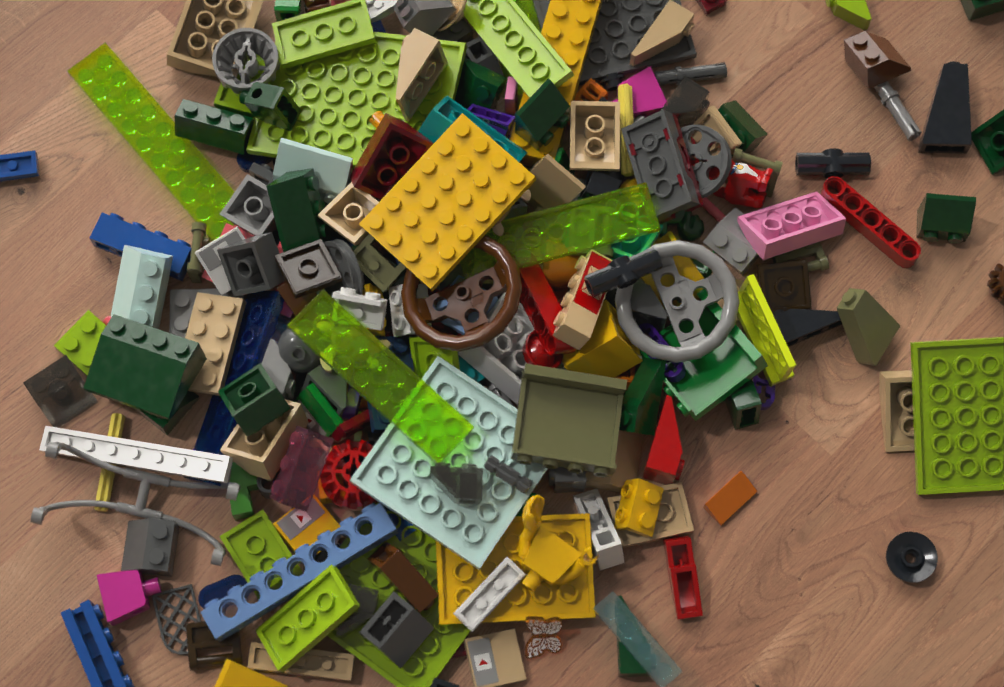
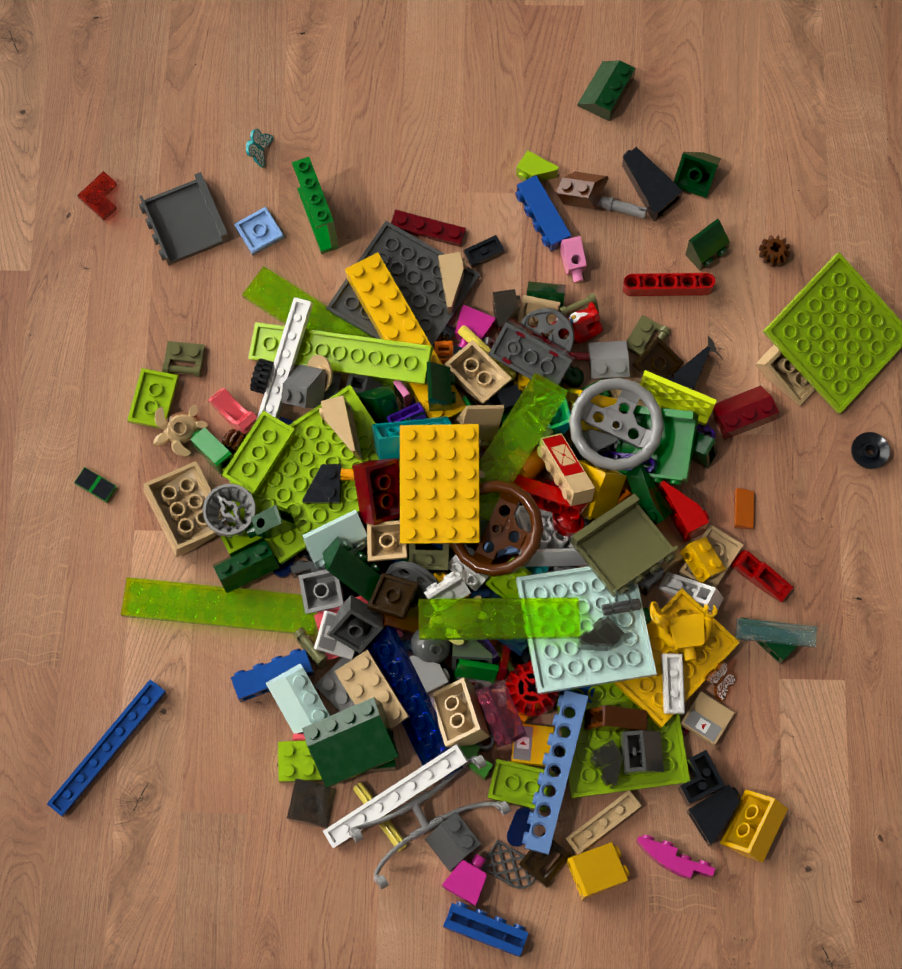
camera: 40 degrees left, 0 degrees up
(253, 400) = (437, 699): dark green slope -> none
(307, 618) = (587, 793): lime plate -> none
(351, 115) = (325, 486): none -> black wing
(623, 272) = (575, 434): black piece -> none
(694, 73) = (489, 286): dark grey pin -> none
(722, 36) = (483, 251): none -> black plate
(791, 225) = (629, 324): bright pink slope -> none
(803, 109) = (572, 251): none -> bright pink torso
(814, 50) = (543, 213): none -> blue brick
(822, 408) = (744, 412): none -> dark red slope
(832, 163) = (616, 269): black piece -> none
(866, 325) = (725, 344): olive slope -> none

